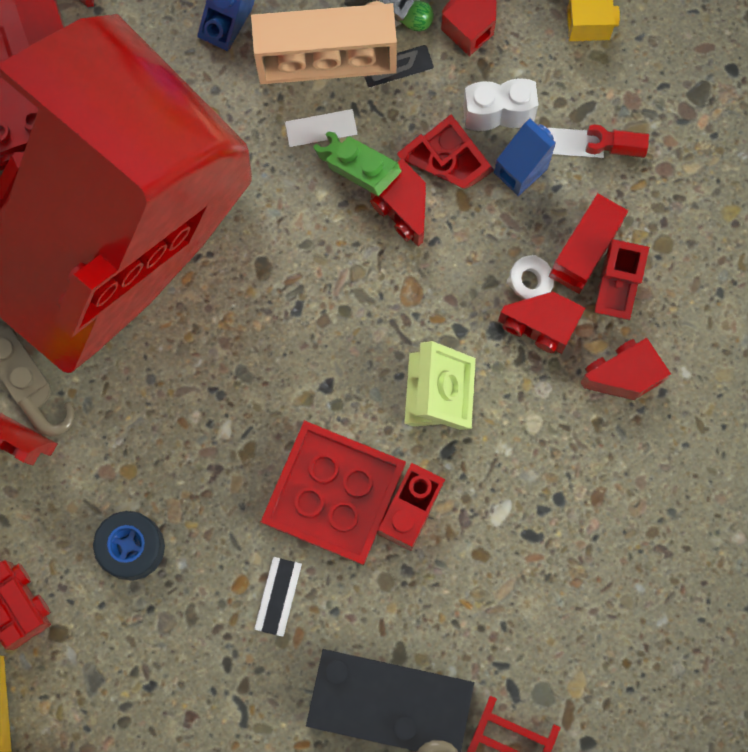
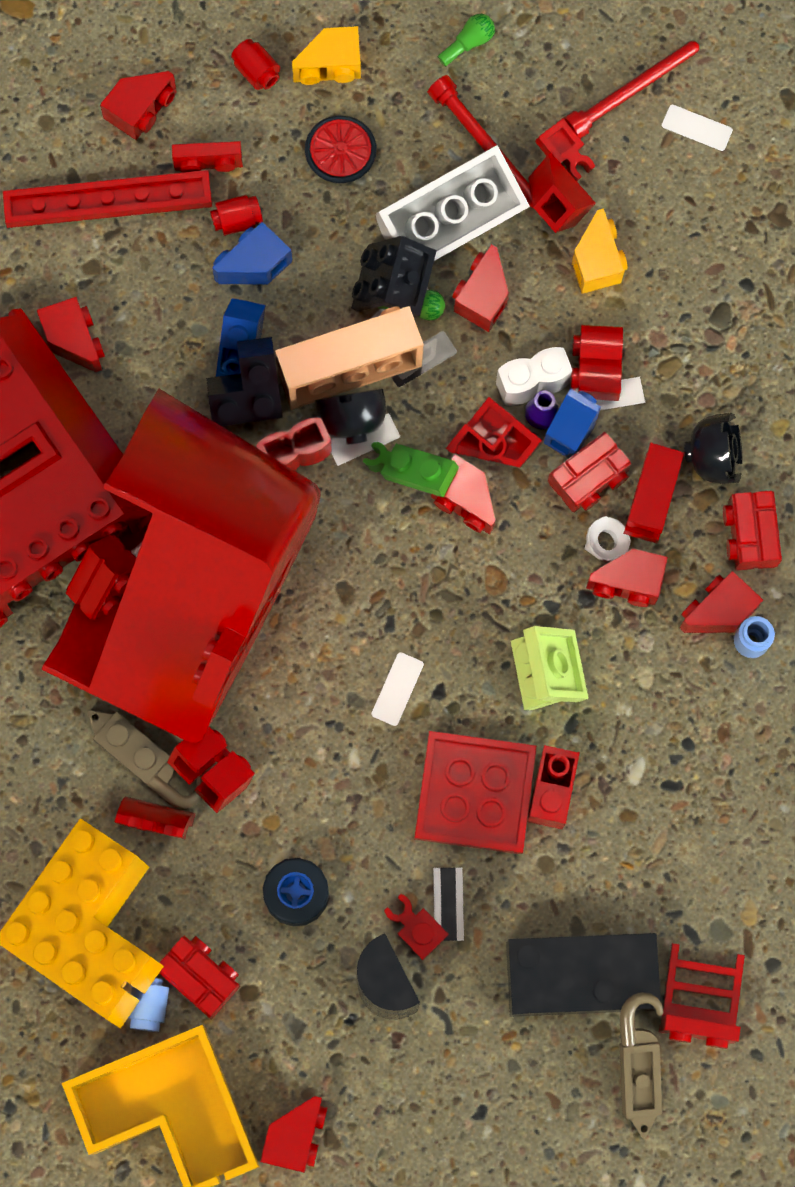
camera: 20 degrees left, 0 degrees up
(87, 406) = (222, 781): none -> red piece
(178, 658) = (384, 983): none -> black brick
(225, 54) = (253, 392): none -> black brick
(242, 616) = (420, 931): none -> red plate
(254, 116) = (302, 445): none -> red brick
(287, 373) = (397, 689): none -> white sticker
(314, 97) = (352, 414): none -> black cylinder
(498, 136) = (540, 416): none -> dark purple cone
(530, 210) = (589, 473): none -> brick
(568, 105) = (599, 361): none -> red brick
(618, 142) = (656, 385): red bar -> none
(619, 278) = (692, 517): red brick -> none
(659, 401) = (759, 628): none -> light blue brick
(661, 216) = (715, 449): none -> black cylinder
(678, 304) = (753, 530): none -> red brick

